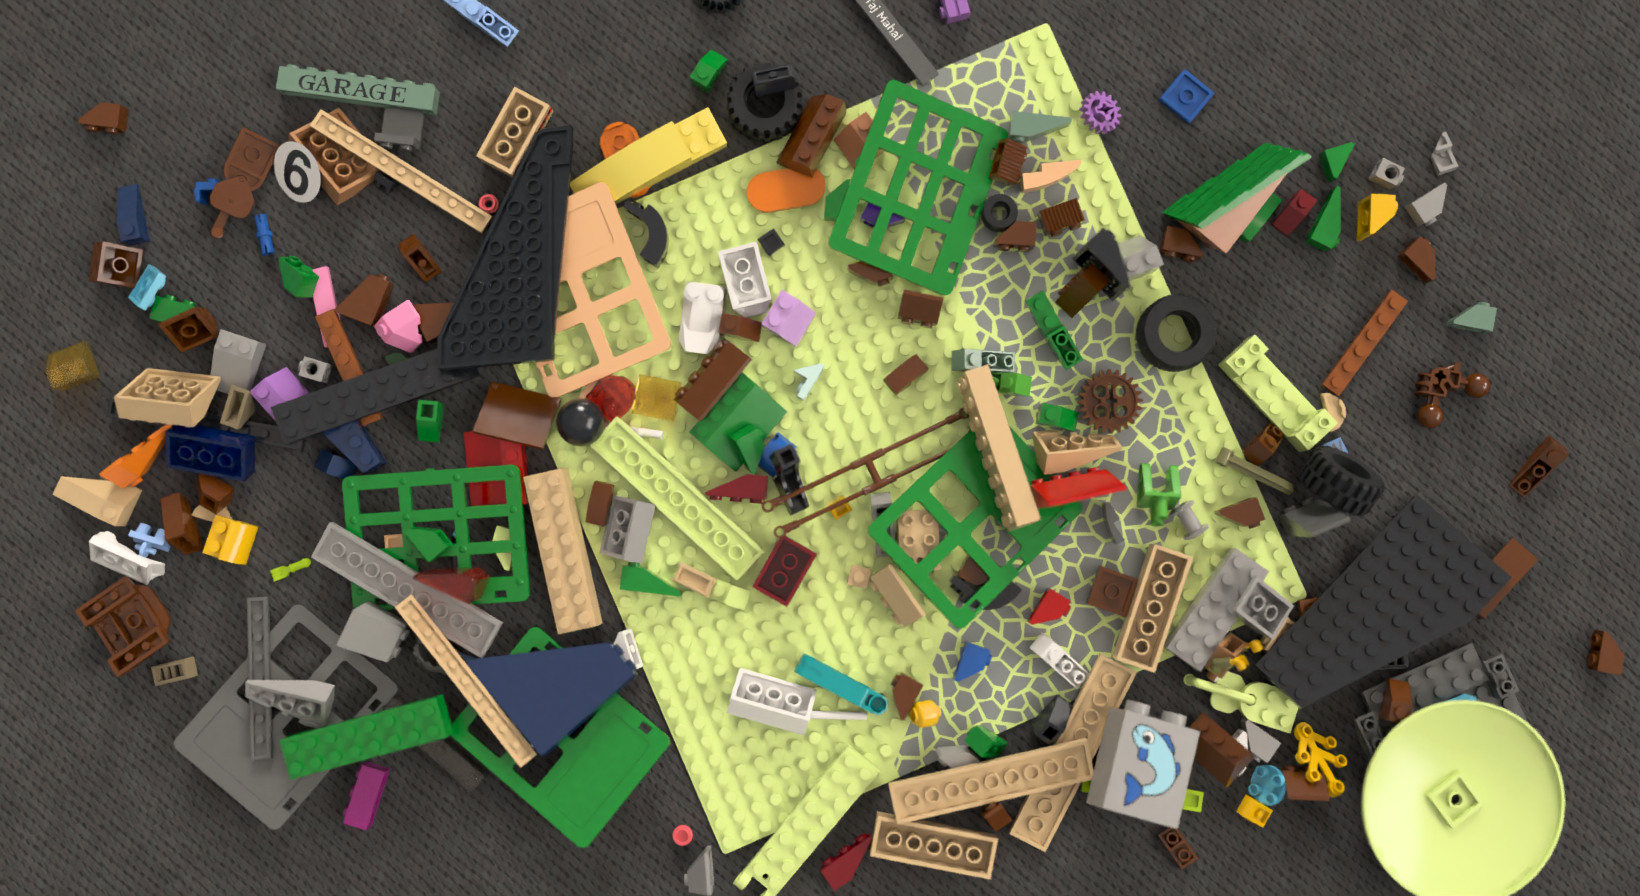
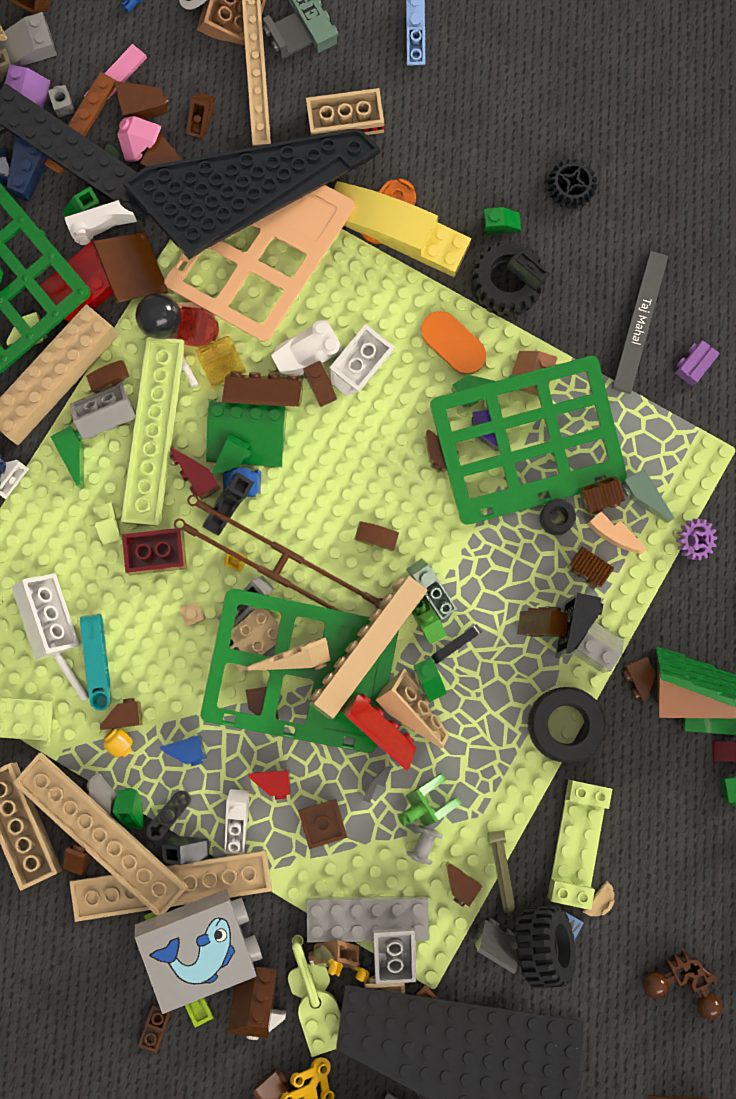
camera: 55 degrees right, 5 degrees down
(297, 277) = (121, 39): green slope -> none
(387, 181) = (240, 52): black tile -> none
(452, 418) = (97, 220): none -> white slope
(484, 199) = (278, 131): coral plate -> none
(658, 241) = (343, 275): black arch -> none
(694, 579) = (99, 489): tan tile -> none
(771, 242) = (404, 361): black tile -> none
(788, 318) = (354, 415): lavender slope -> none
(811, 375) = (323, 464): light aqua slope -> none
(813, 134) = (510, 332): reddish brown slope -> none
(896, 595) = (196, 653): tan slope -> none
(920, 308) = (435, 508): reddish brown slope -> none
(968, 505) = (304, 656): none -> tan wedge
(1007, 595) = (252, 738): black arch -> none
(1012, 729) = (163, 830): none -> black beam
(1019, 235) = (551, 544): reddish brown slope -> none
(1044, 373) = (456, 644): none -> black beam
(1053, 330) = (496, 626): green slope -> none
(1091, 401) = (462, 697): reddish brown gear -> none
(1152, 607) = (331, 865): tan brick -> none
(1254, 811) = (227, 1073): yellow slope -> none
(1259, 742) = (286, 1035): light grey slope -> none
(1264, 444) = (530, 863): reddish brown slope -> none
(1267, 785) = (255, 1068): medium azure dish -> none
(1364, 343) = (674, 887): dark orange plate -> none

